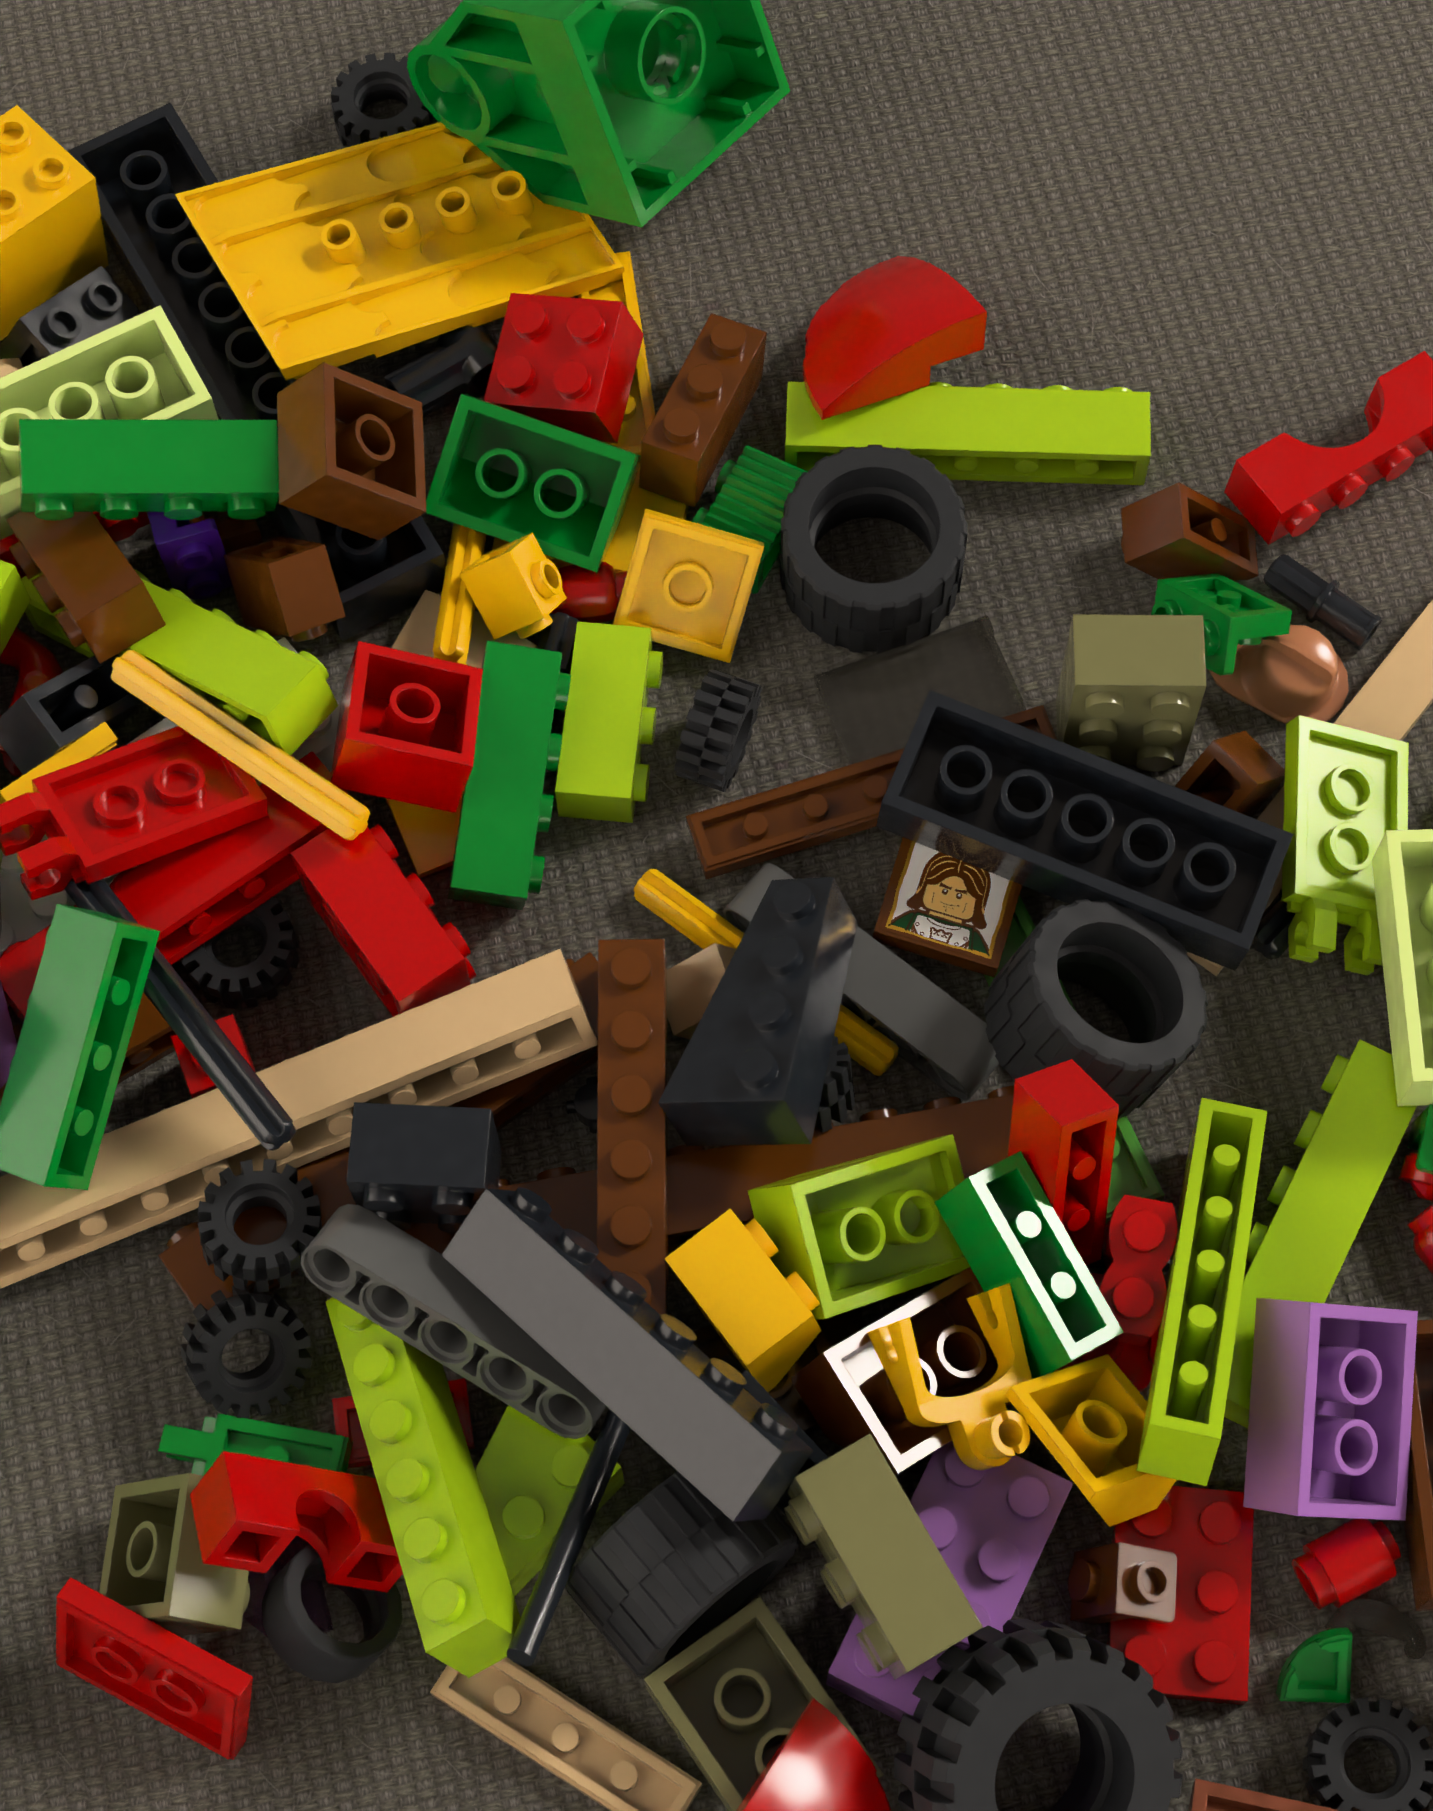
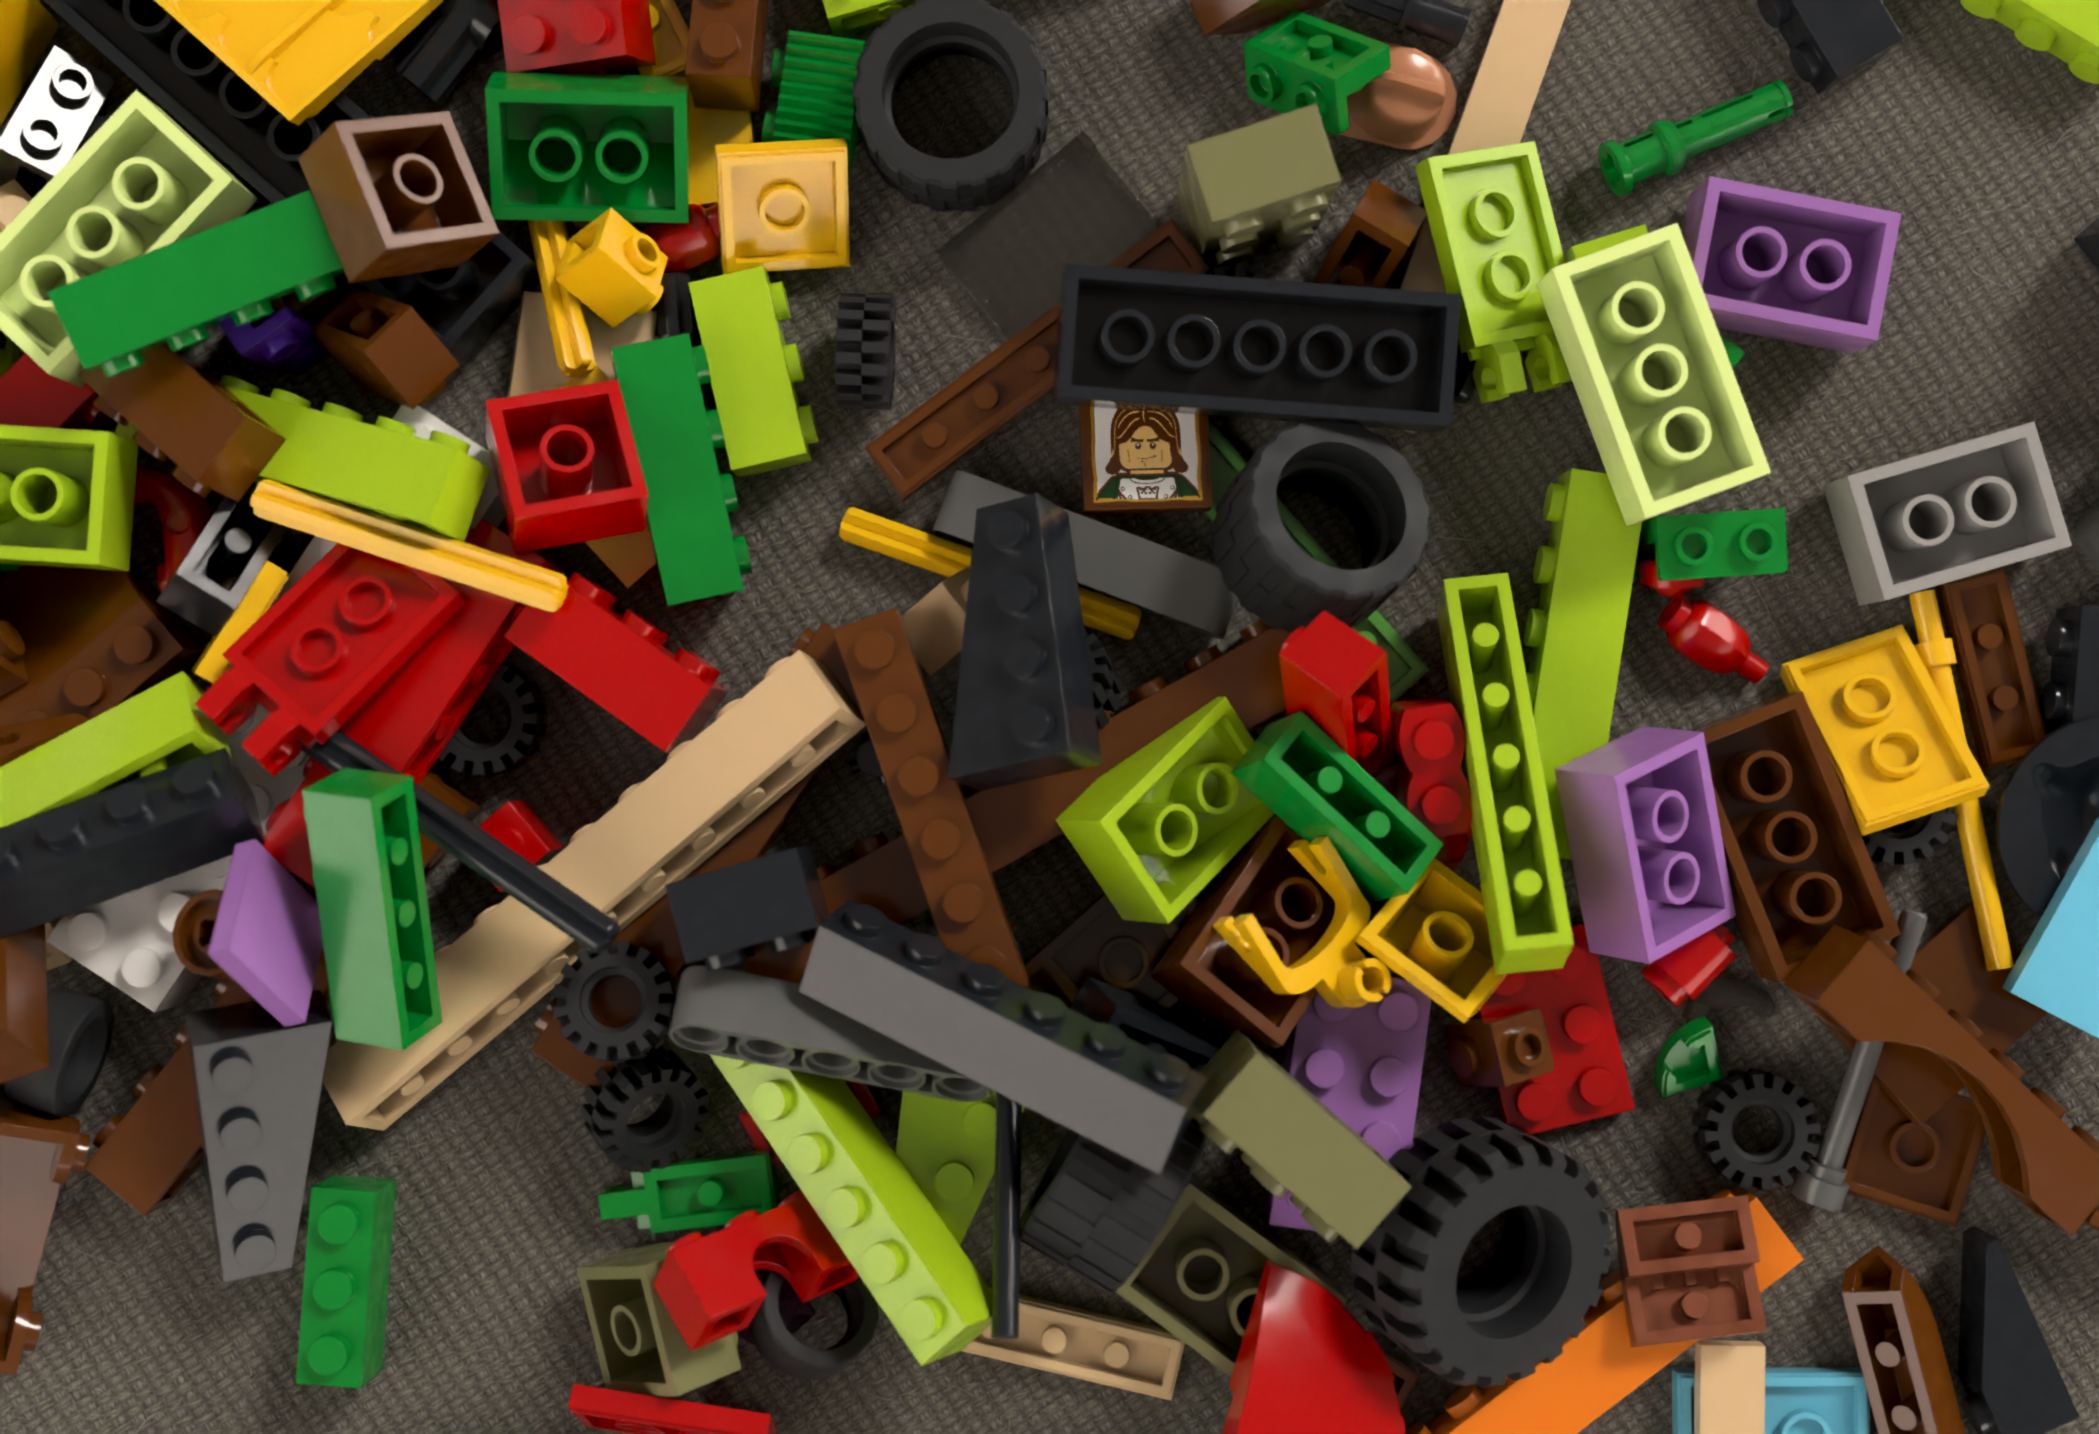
camera: 20 degrees left, 20 degrees up
(746, 1297) = (1088, 927): yellow slope -> none

